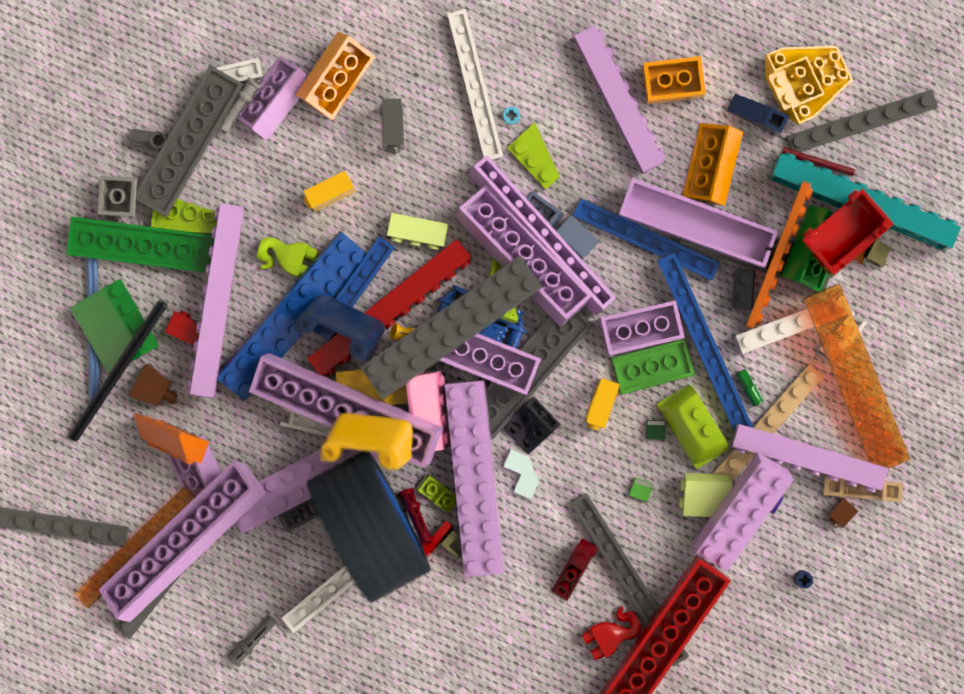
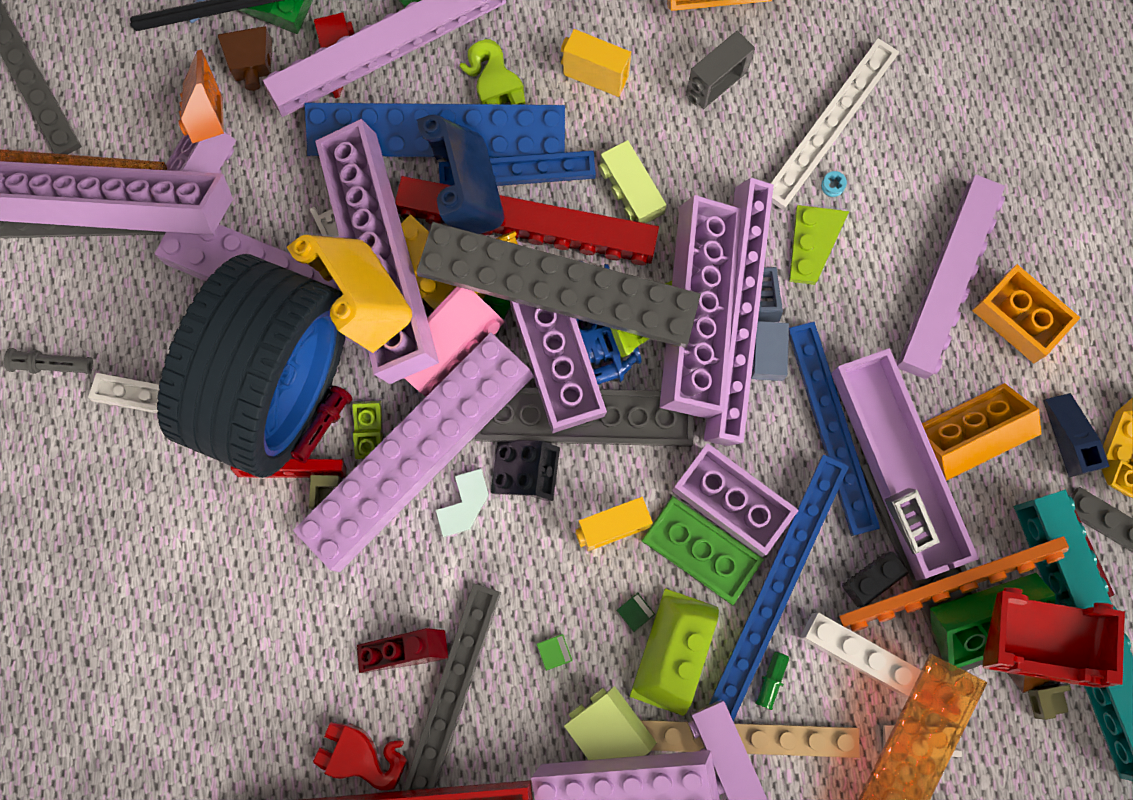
camera: 50 degrees right, 10 degrees down
(714, 245) = (921, 515): none -> dark grey slope

